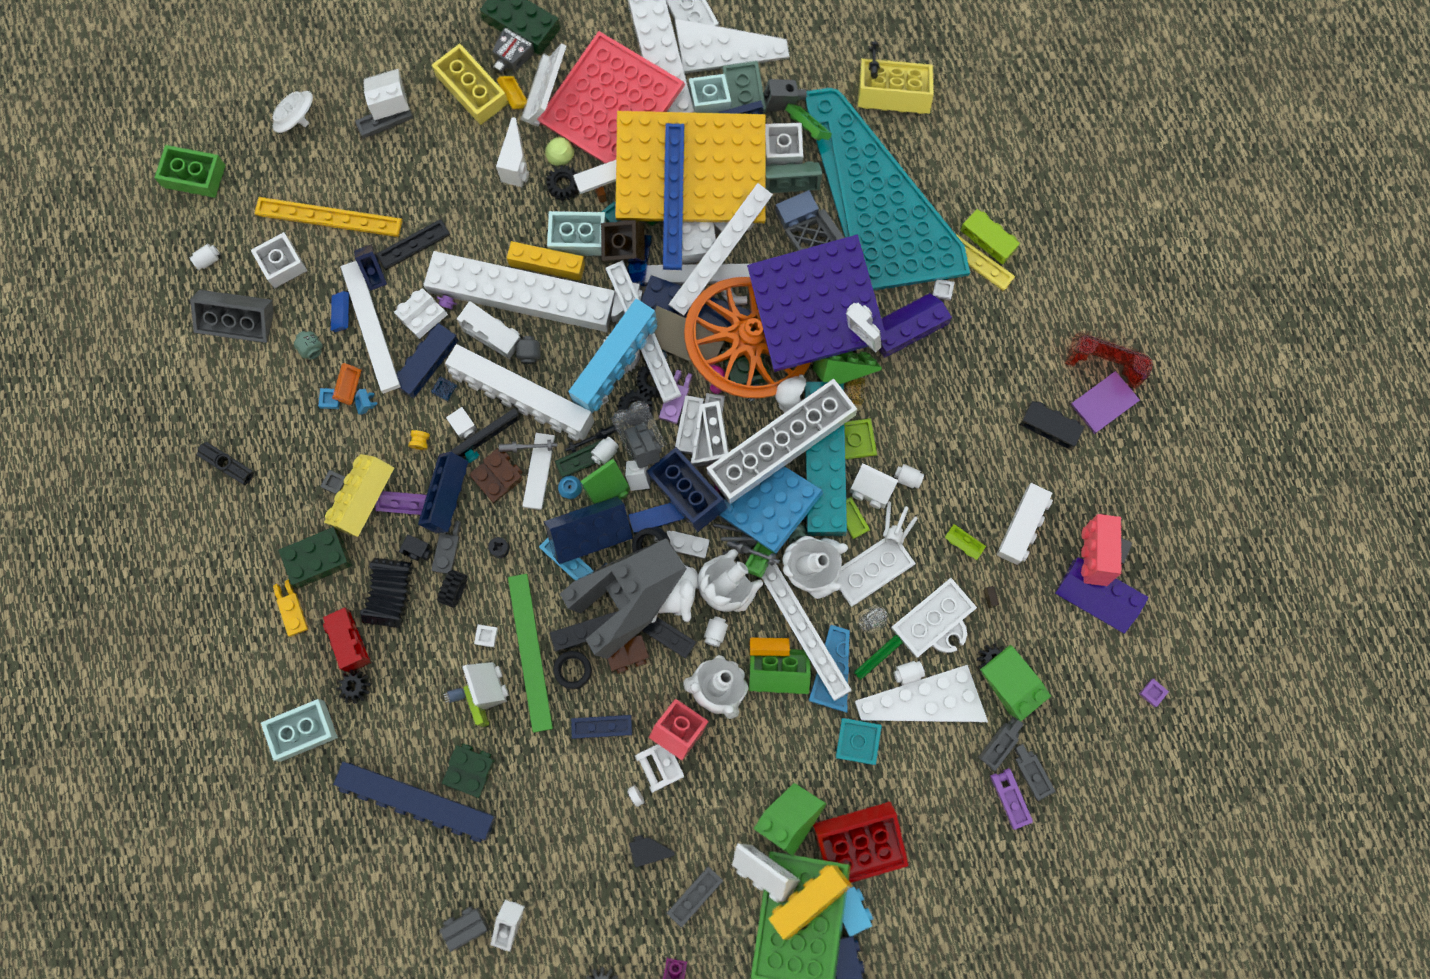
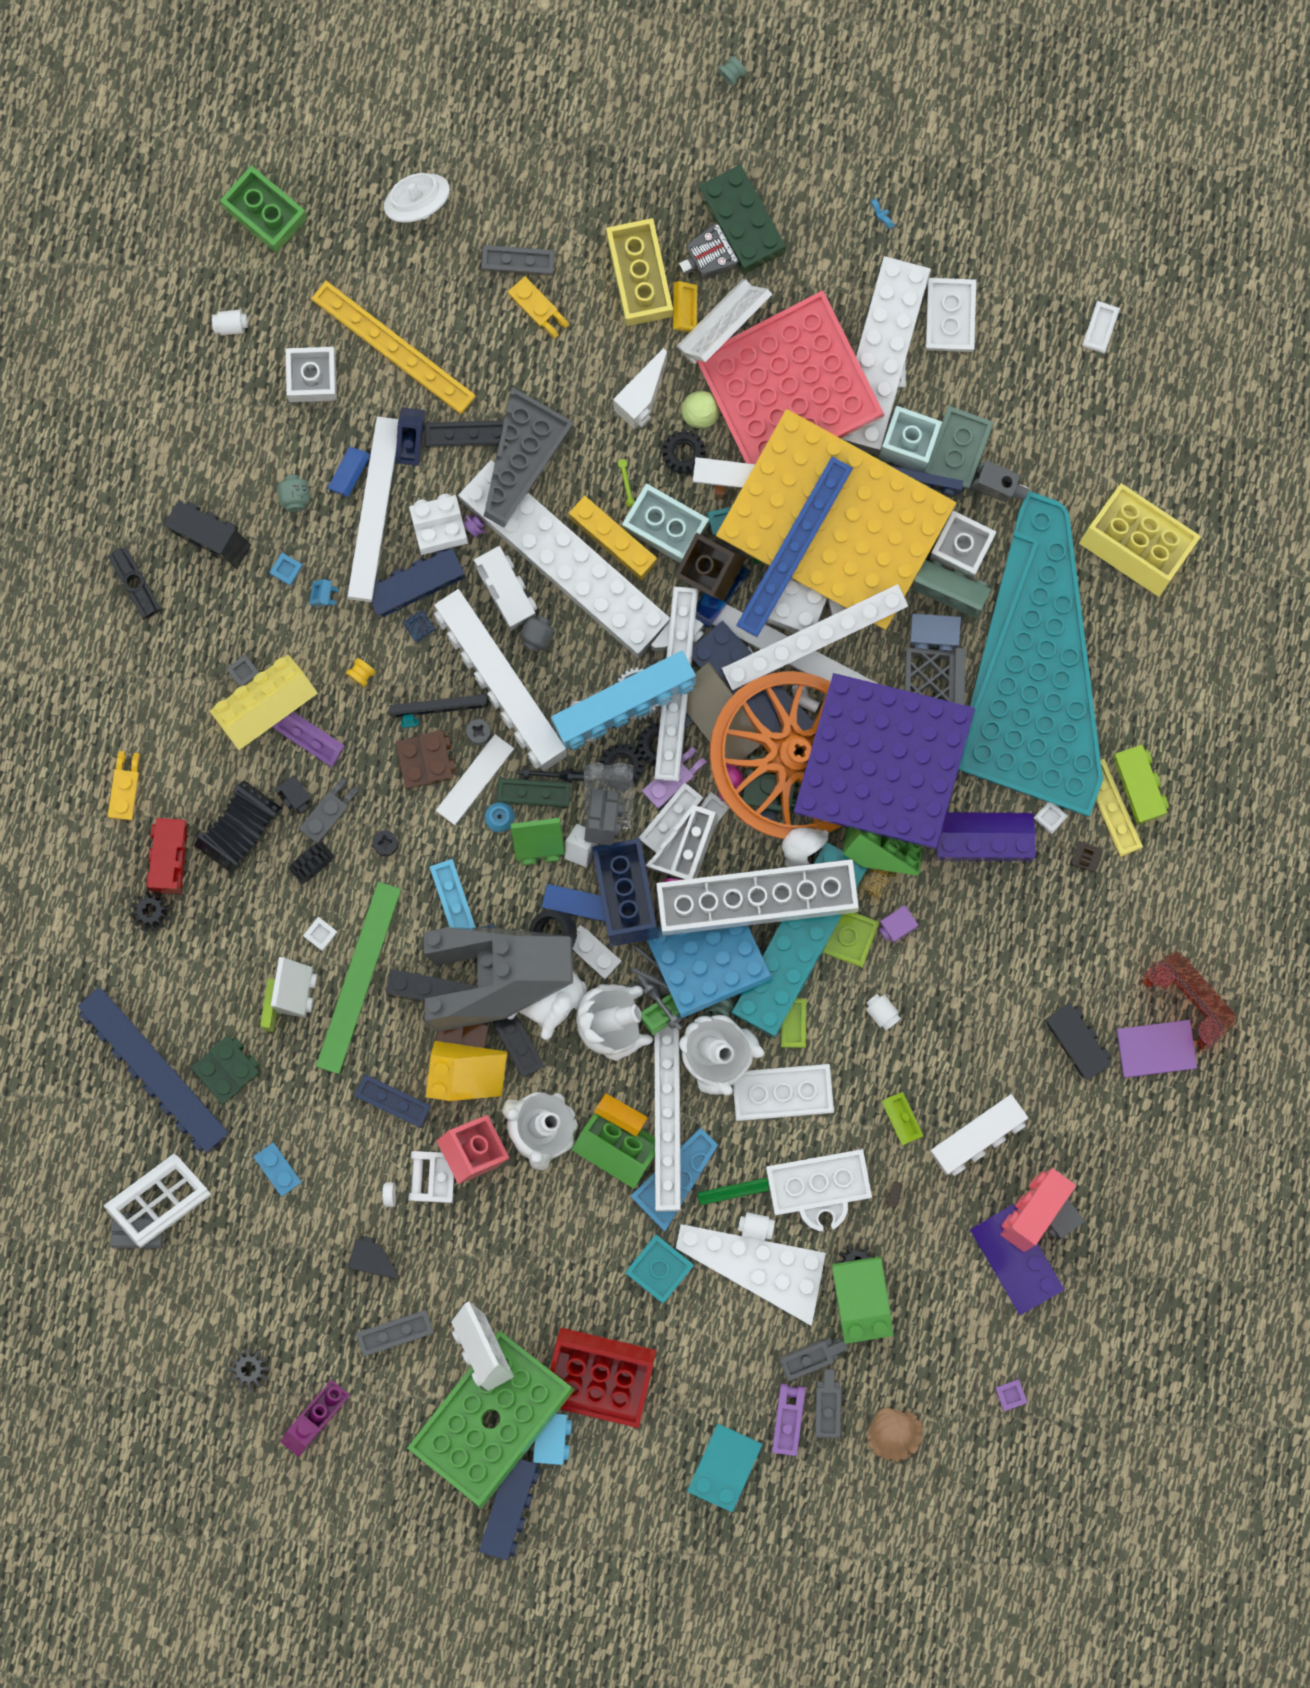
camera: 30 degrees right, 5 degrees up
(231, 315) = (226, 411): dark grey slope -> none
(260, 401) = (208, 532): none -> black wedge
(299, 730) = (70, 927): light aqua brick -> none
(315, 557) = (180, 745): dark green brick -> none
(346, 384) = (313, 563): orange tile -> none
(385, 94) = (535, 230): white slope -> none
(413, 142) = (536, 305): none -> yellow hinge
(443, 492) = (356, 749): dark blue brick -> none
(453, 232) = (525, 447): none -> dark grey wing
(455, 695) = (254, 980): sand blue piece -> none
(462, 424) = (418, 680): white brick -> none
(482, 905) = (171, 1216): none -> white piece
(507, 925) = (183, 1253): white slope -> none
(514, 447) = (461, 738): flat silver piece -> none
(526, 212) = (622, 463): none -> lime hinge
(526, 439) = (481, 735): none -> dark grey wheel
(544, 823) = (277, 1169): none -> dark azure plate
(558, 665) = (391, 1004): black tyre -> none
(588, 530) = (492, 879): dark blue brick -> none
(604, 451) = (558, 798): white brick -> none
(642, 677) = (465, 1072): none -> yellow slope
(710, 46) = (954, 379): white wing -> none
(715, 631) = (571, 1066): white brick -> none
(790, 818) = (539, 1308): bright green slope -> none
(808, 122) = (1007, 532): bright green plate -> none
(810, 901) = (510, 1402): yellow brick -> none
(860, 322) = (914, 817): white plate -> none
(872, 619) = (750, 1147): clear head -> none
(873, 486) = (833, 1002): white slope -> none
(874, 65) = (1124, 505): black piece -> none
(885, 412) = (897, 925): none -> medium lavender brick
(895, 534) = (827, 1068): white plant -> none
(982, 302) = (1086, 856): none -> dark brown tile
(987, 861) = (724, 1467): none -> teal slope
(1091, 767) = (894, 1434): none -> medium nougat hair

